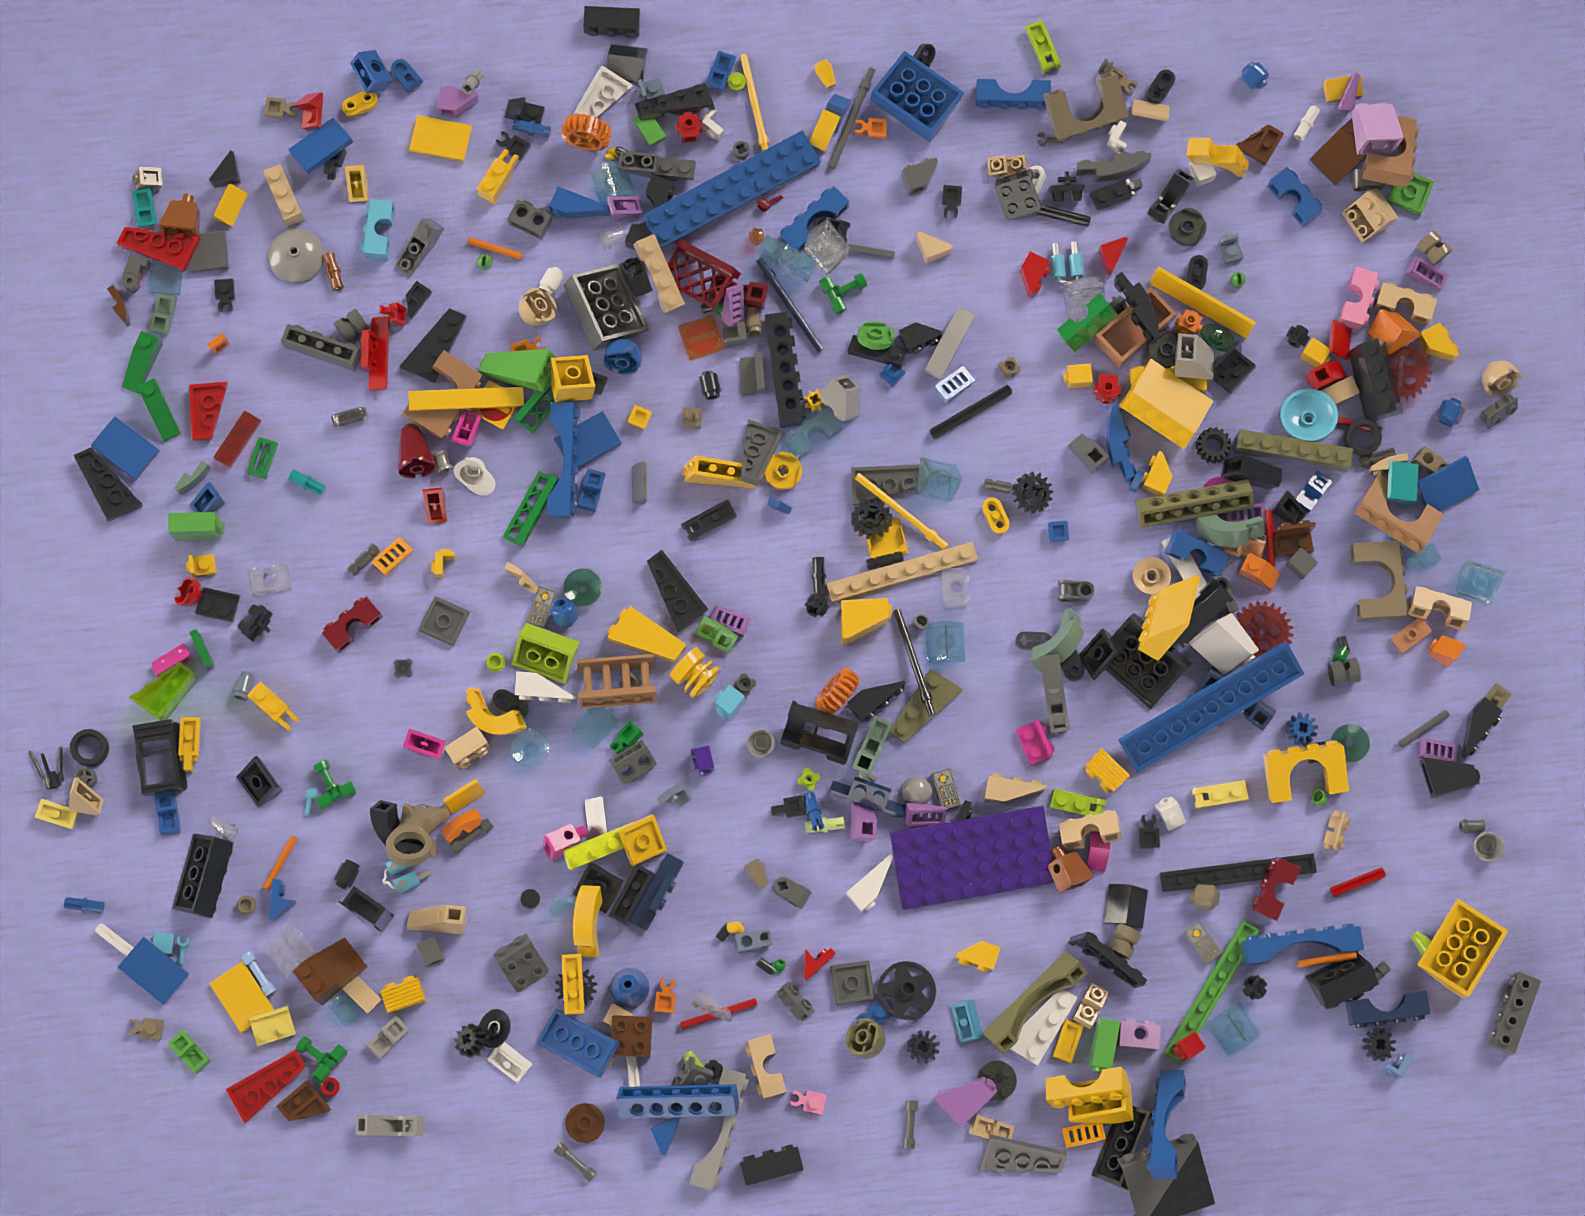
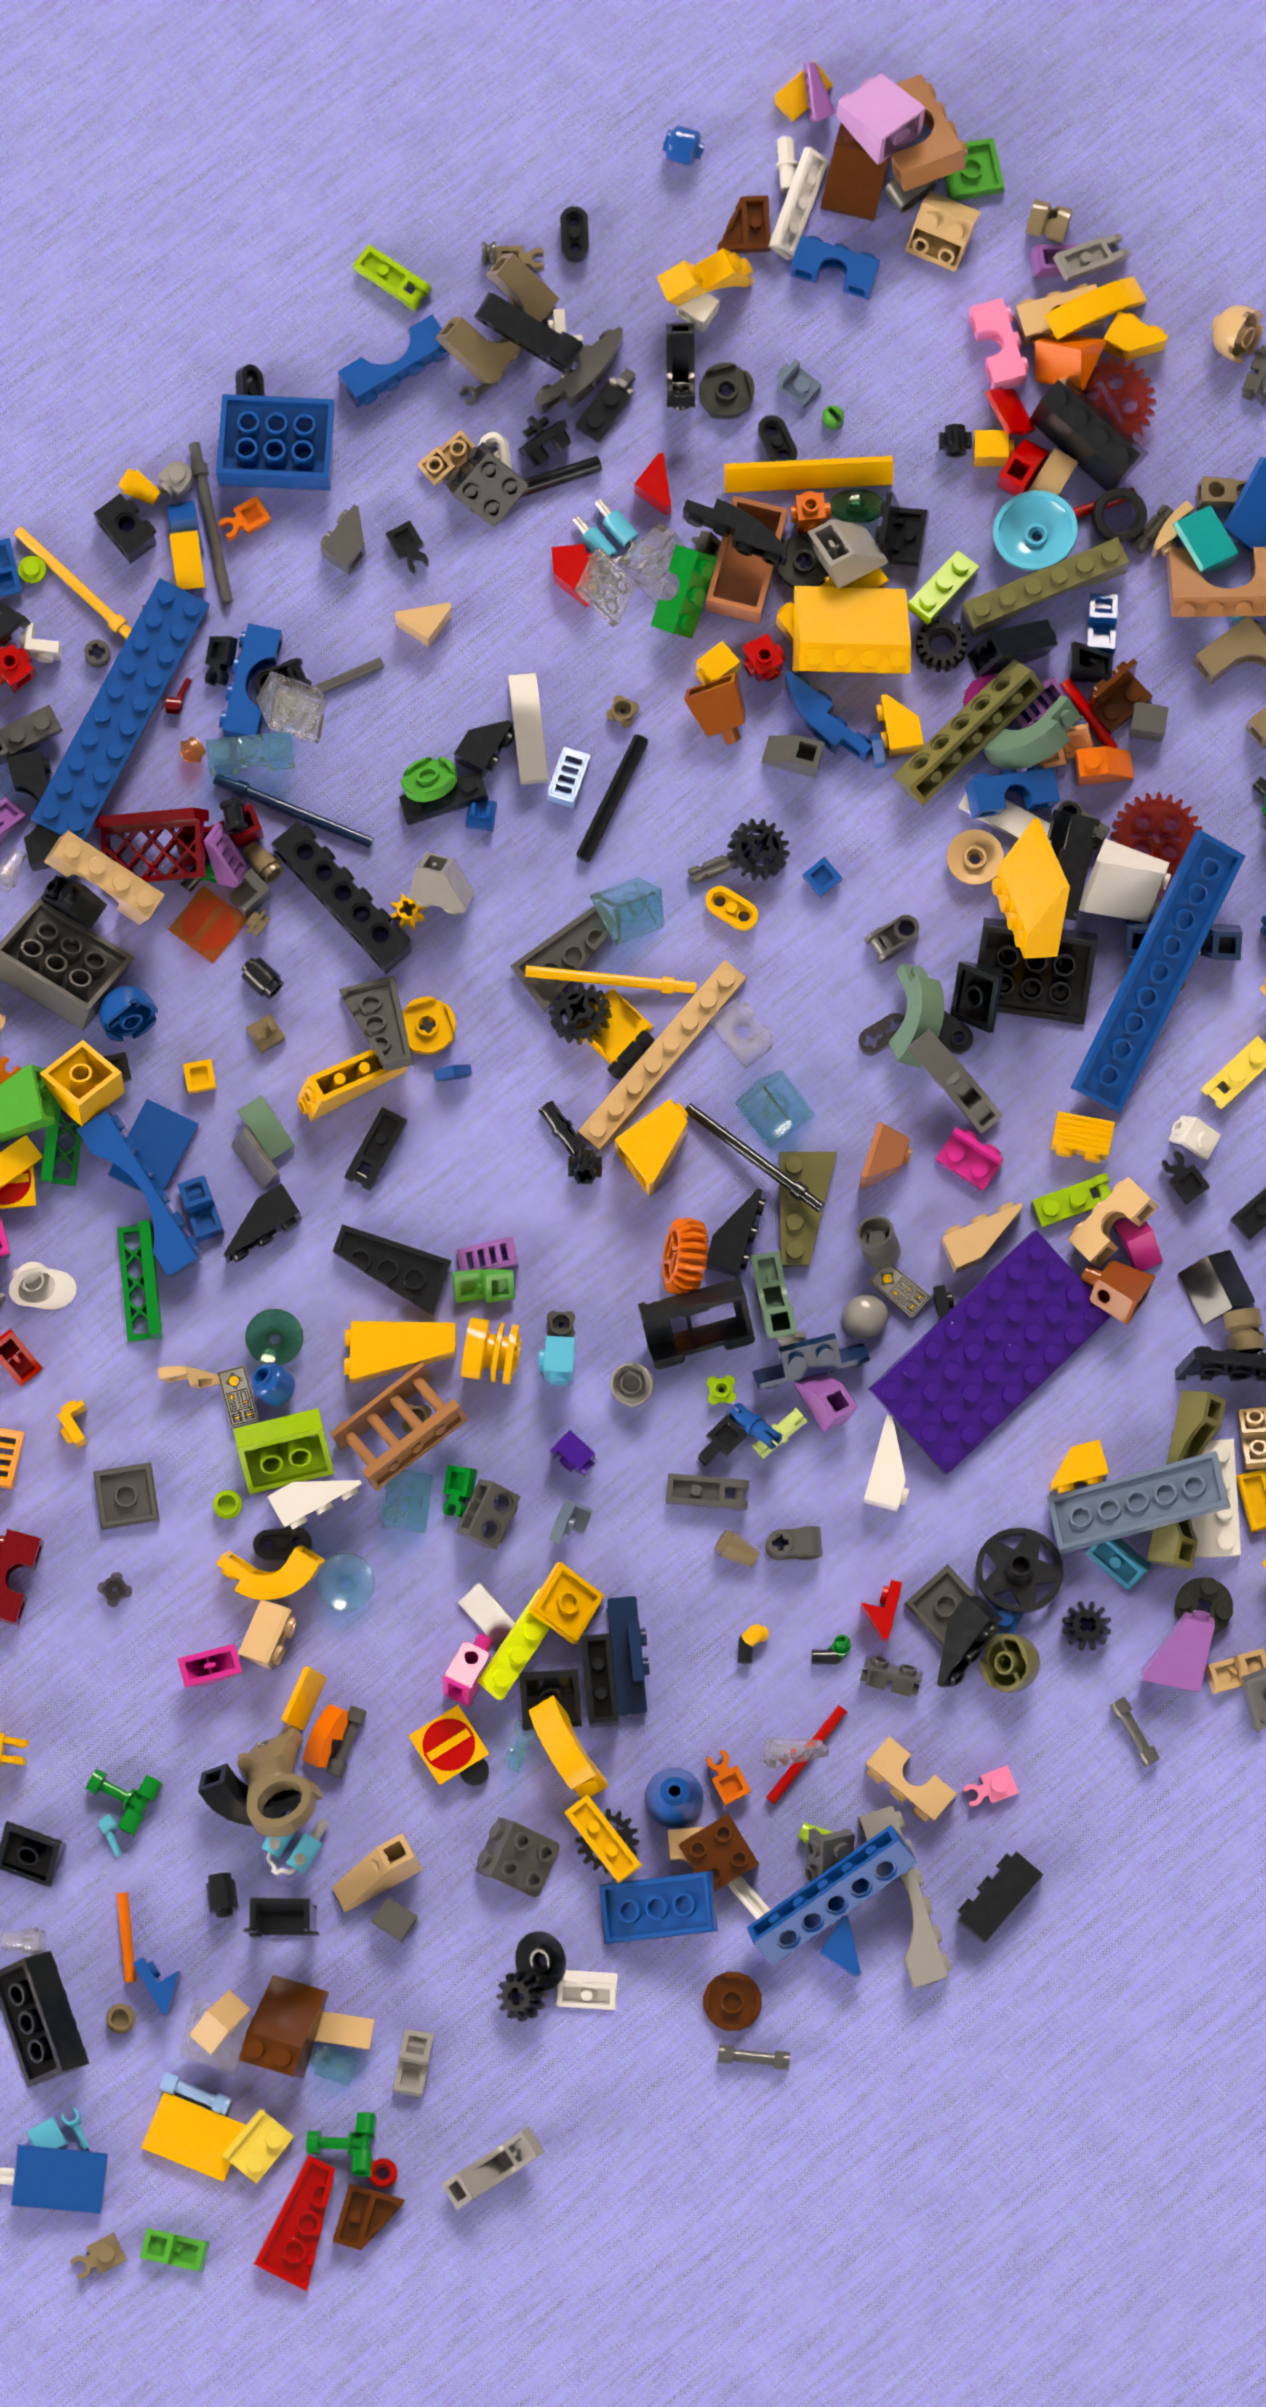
camera: 30 degrees left, 0 degrees up
(295, 943) = (219, 2021): none -> tan slope
(403, 995) = (397, 1996): yellow brick -> none
(525, 875) = (448, 1744): none -> piece
(623, 518) = (266, 1217): none -> black slope
(656, 469) = (265, 1127): none -> sand green slope
(718, 1068) = (851, 1821): black plate -> none
(727, 353) = (256, 922): none -> dark tan plate
(752, 285) = (233, 816): none -> black bush
(752, 374) = (306, 929): dark grey panel -> none
(752, 940) = (787, 1636): sand blue leg -> none
(762, 830) = (706, 1491): none -> dark grey plate
(803, 80) = (130, 543): none -> black brick
(806, 194) = (219, 656): none -> black plate
(824, 422) = (440, 929): clear light blue arch -> none
(836, 292) = (342, 757): green bar -> none
(848, 82) = (176, 479): none -> light grey plate
(851, 1006) = (966, 1634): none -> black slope
(917, 809) = (877, 1342): medium lavender slope -> none
(923, 620) = (729, 1098): dark grey hinge -> none
(951, 755) = (878, 1242): none -> dark grey wheel
(987, 709) = (885, 1156): none -> nougat slope
(998, 997) = (1138, 1502): none -> sand blue plate
(1045, 292) = (606, 587): none -> clear tile
(1063, 399) = (718, 706): none -> dark orange torso
(1095, 121) = (529, 333): none -> black beam
(1150, 110) = (581, 272): tan slope -> none
(1235, 413) = (942, 587): none -> plate
(1299, 148) = (798, 203): none -> white tile
(1428, 310) = (1095, 305): none -> yellow slope
(1444, 282) = (1089, 257): none -> light grey hinge
(1450, 412) = (1205, 414): blue head -> none

